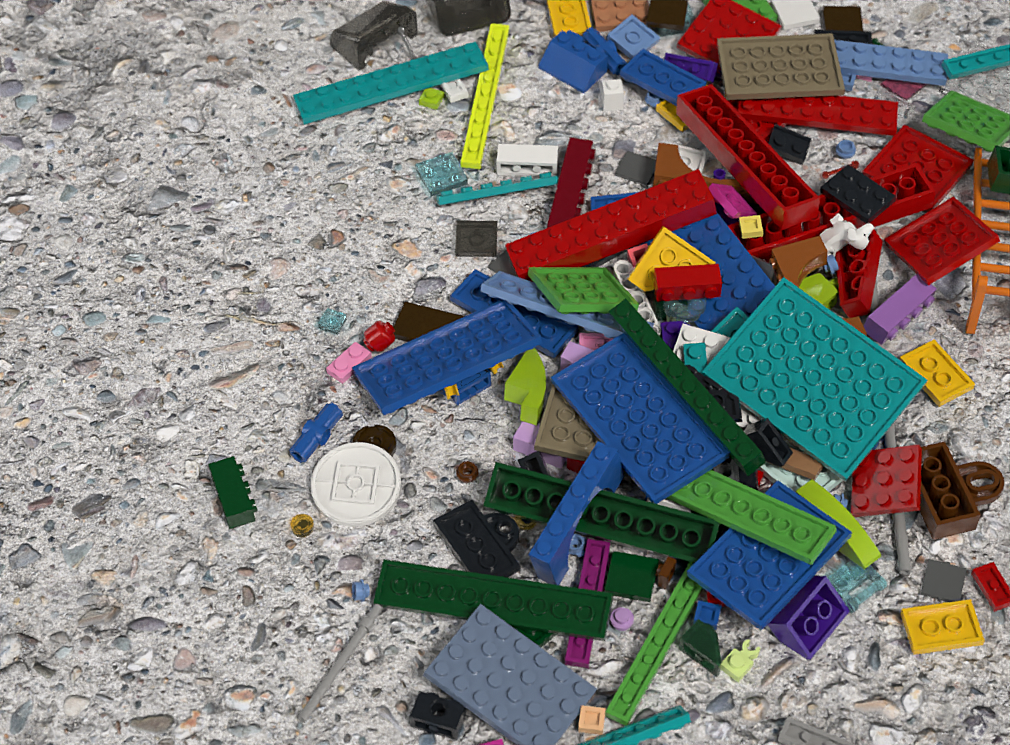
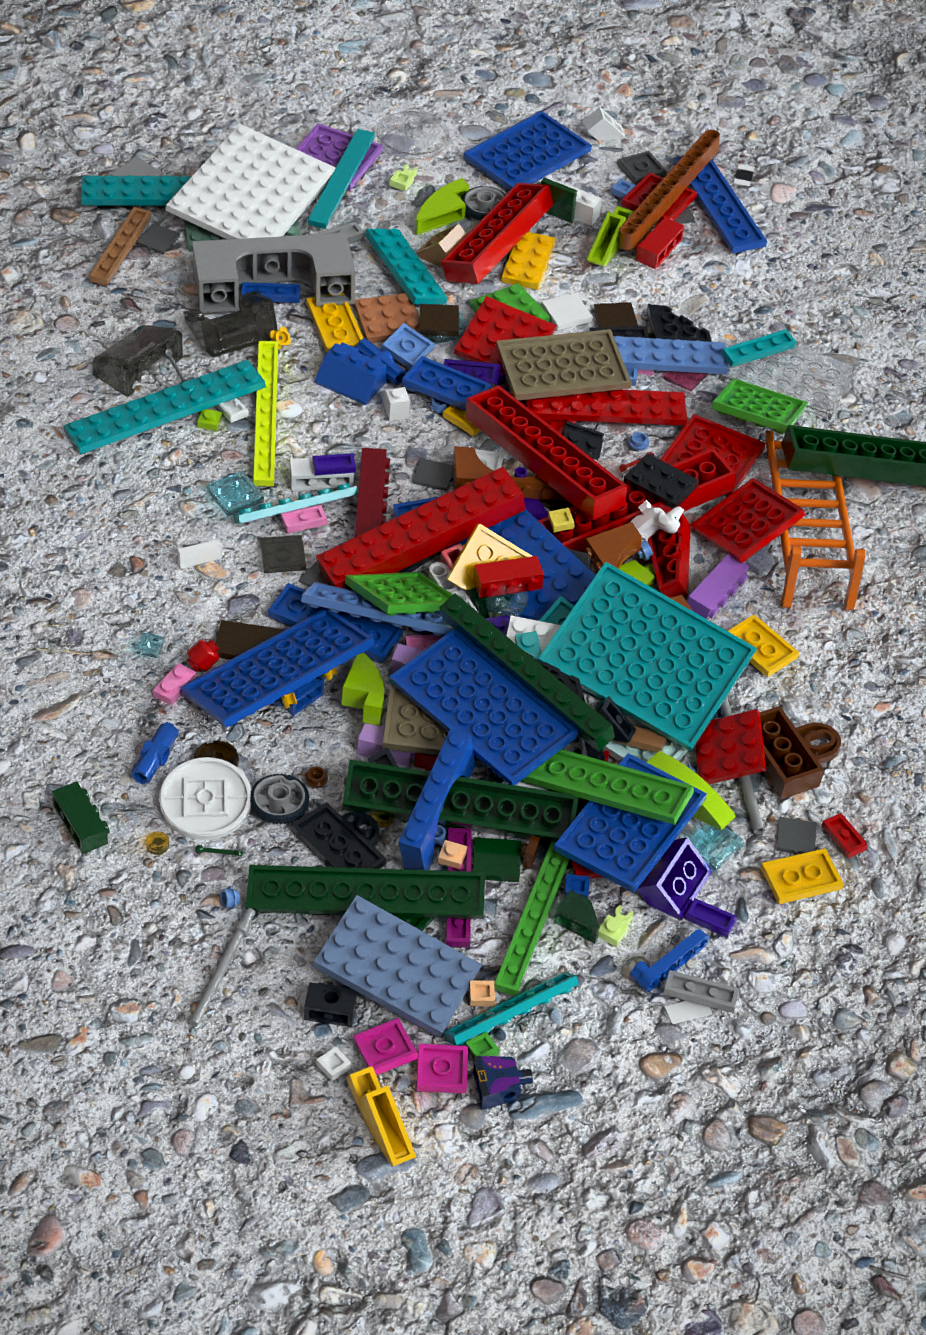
camera: 15 degrees left, 5 degrees down
(341, 536) = (200, 849): none -> dark green hinge
(395, 232) = (199, 554): none -> white tile
(426, 499) = (279, 798): none -> light grey wheel
(502, 204) = (303, 519): none -> bright pink plate
(517, 24) = (285, 337): none -> yellow plate
(538, 152) = (334, 464): none -> dark purple tile
(585, 568) = (452, 854): none -> light nougat plate
(622, 619) = (494, 899): lavender plate -> none
(731, 201) = (541, 500): dark pink plate -> none
(767, 721) = (652, 976): none -> blue beam
(840, 662) = (710, 917): none -> dark purple tile
(895, 33) = (670, 326): none -> black plate

